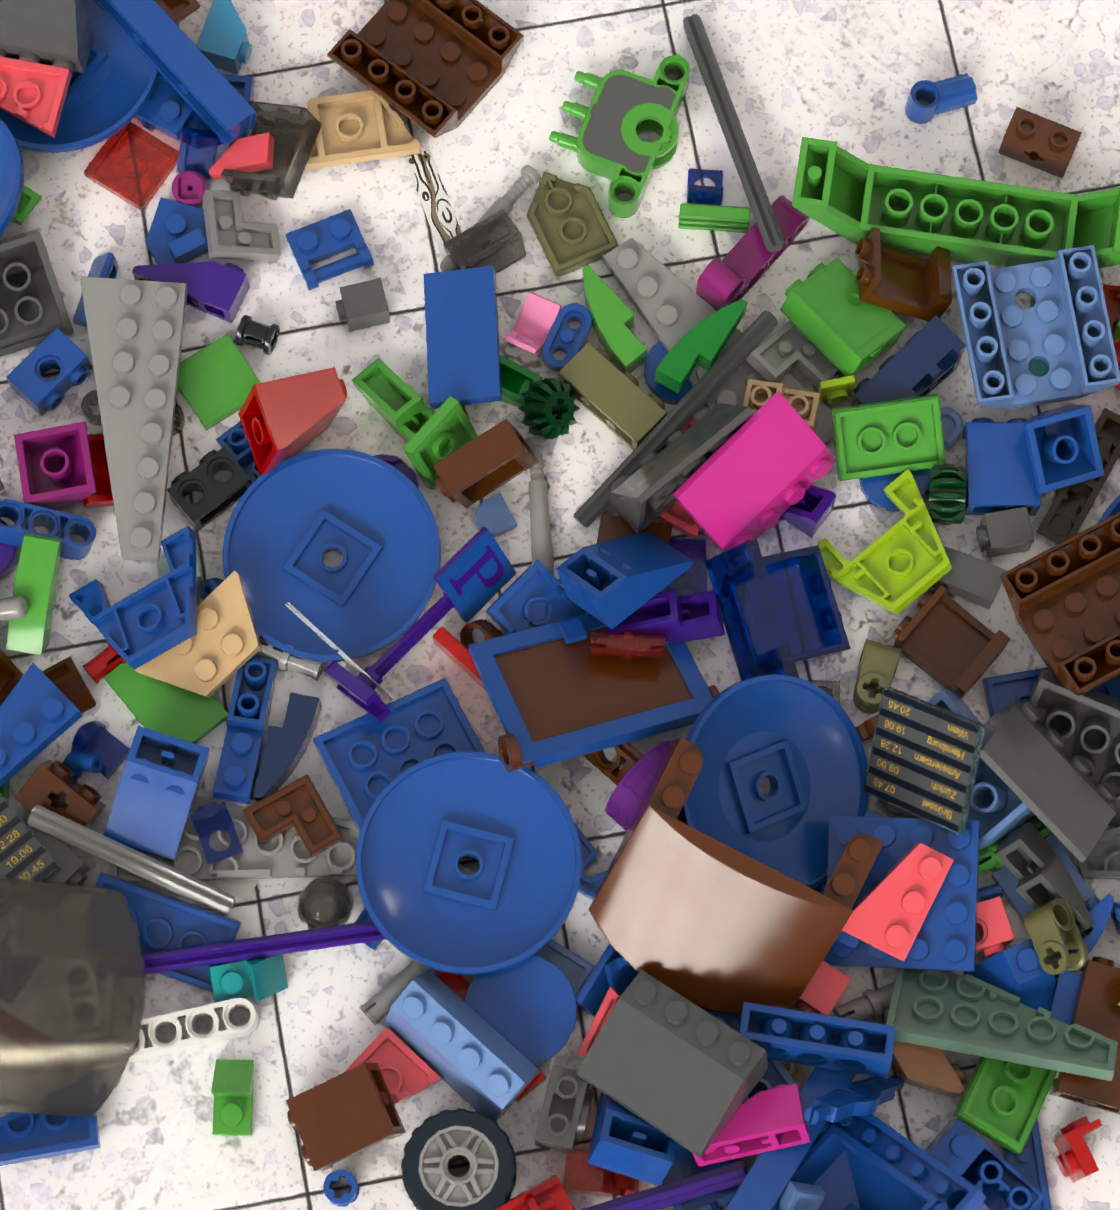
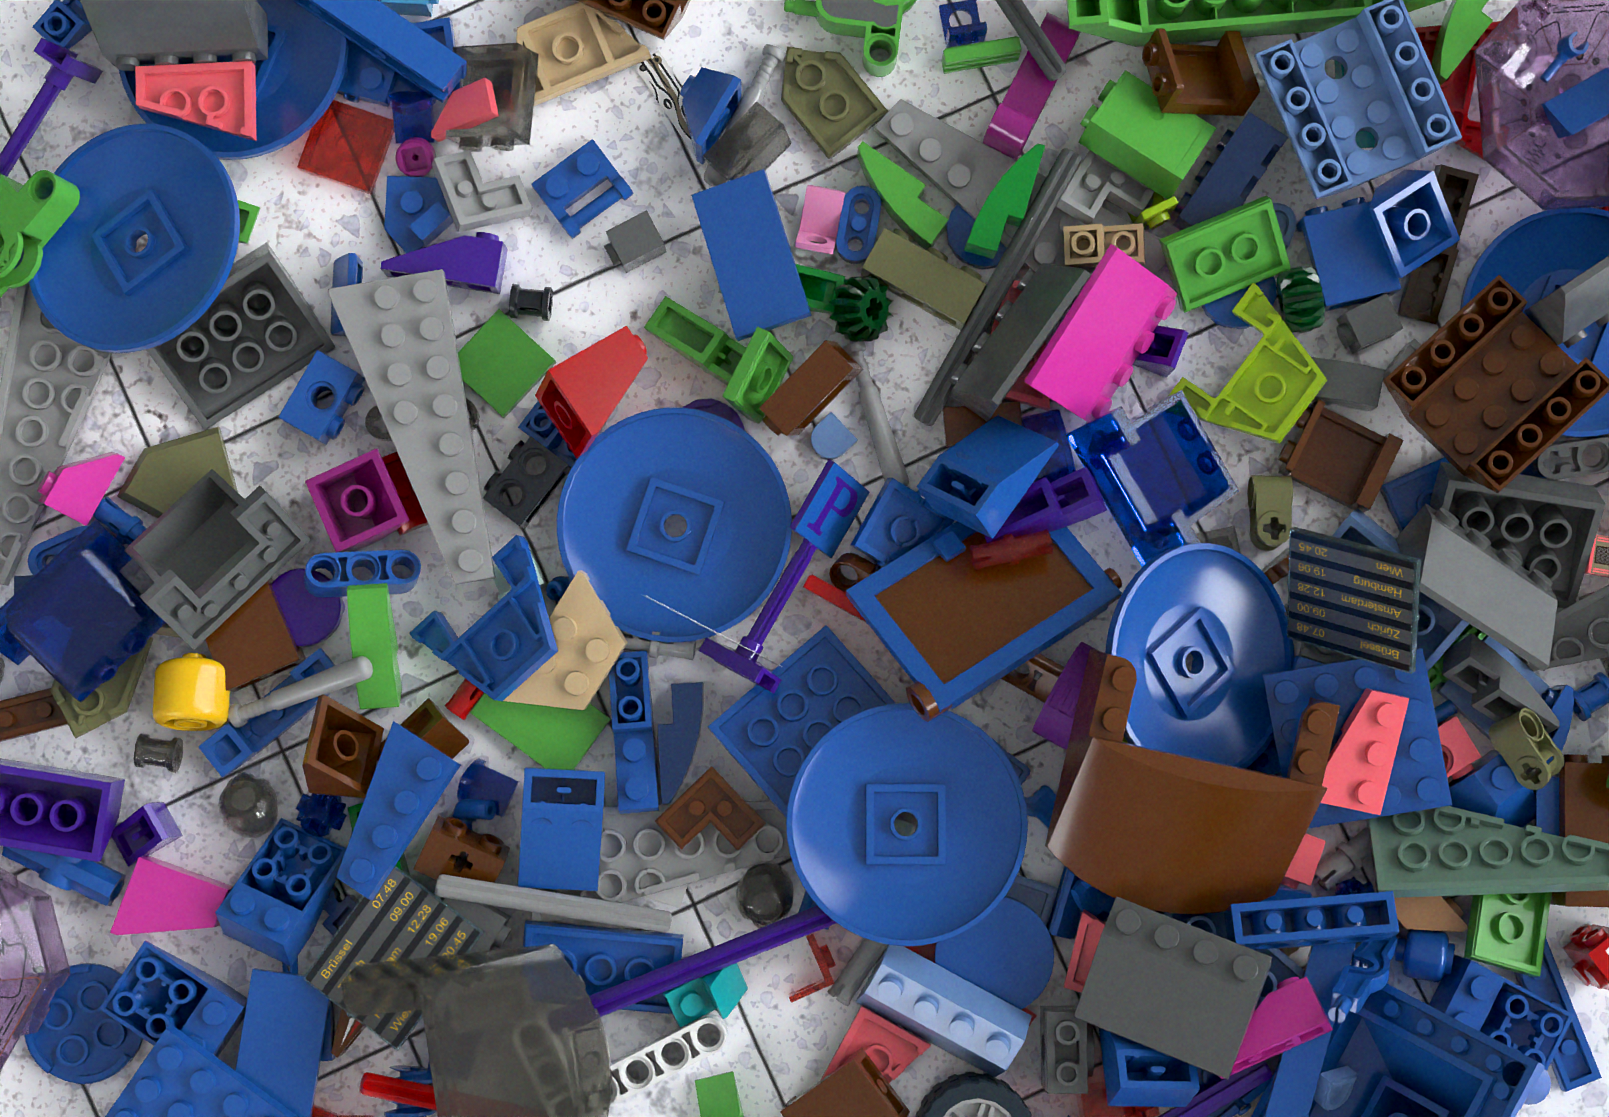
camera: 15 degrees left, 10 degrees up
(214, 818) = (623, 840): clear blue bracket -> none
(364, 979) = (825, 962): none -> clear red bracket
(461, 204) = (708, 107): none -> blue slope
(921, 1110) = (1425, 955): none -> blue head

